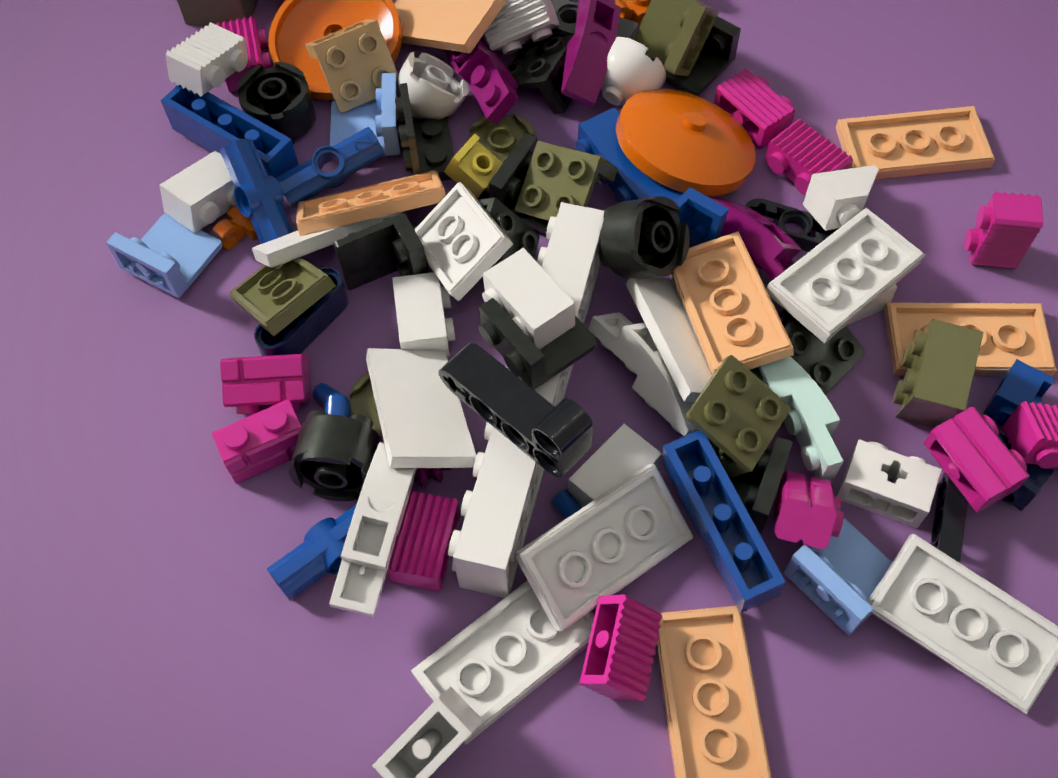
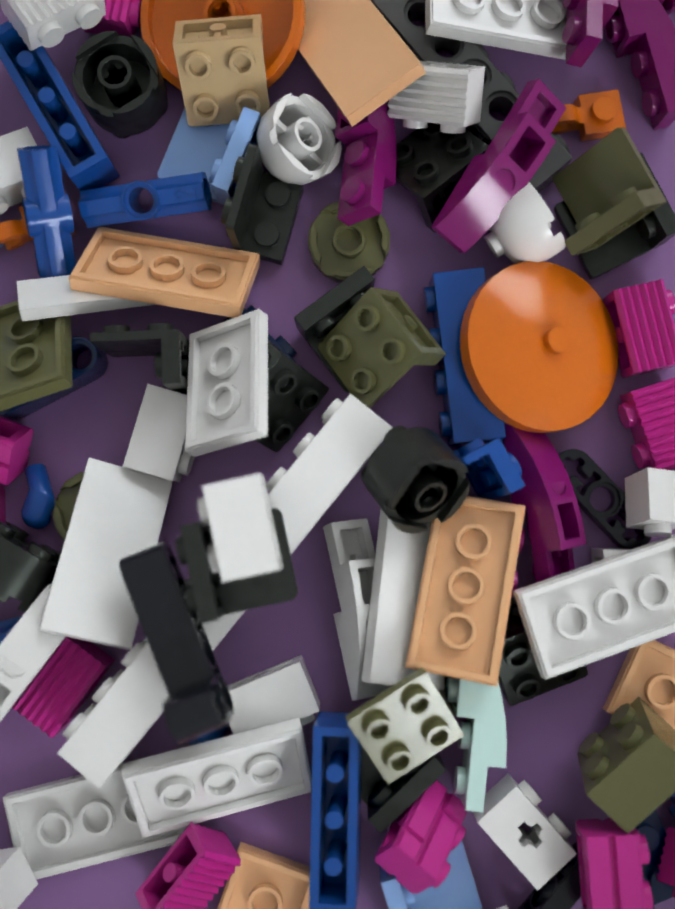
camera: 25 degrees right, 25 degrees up
(473, 166) = (287, 266): light yellow brick -> none

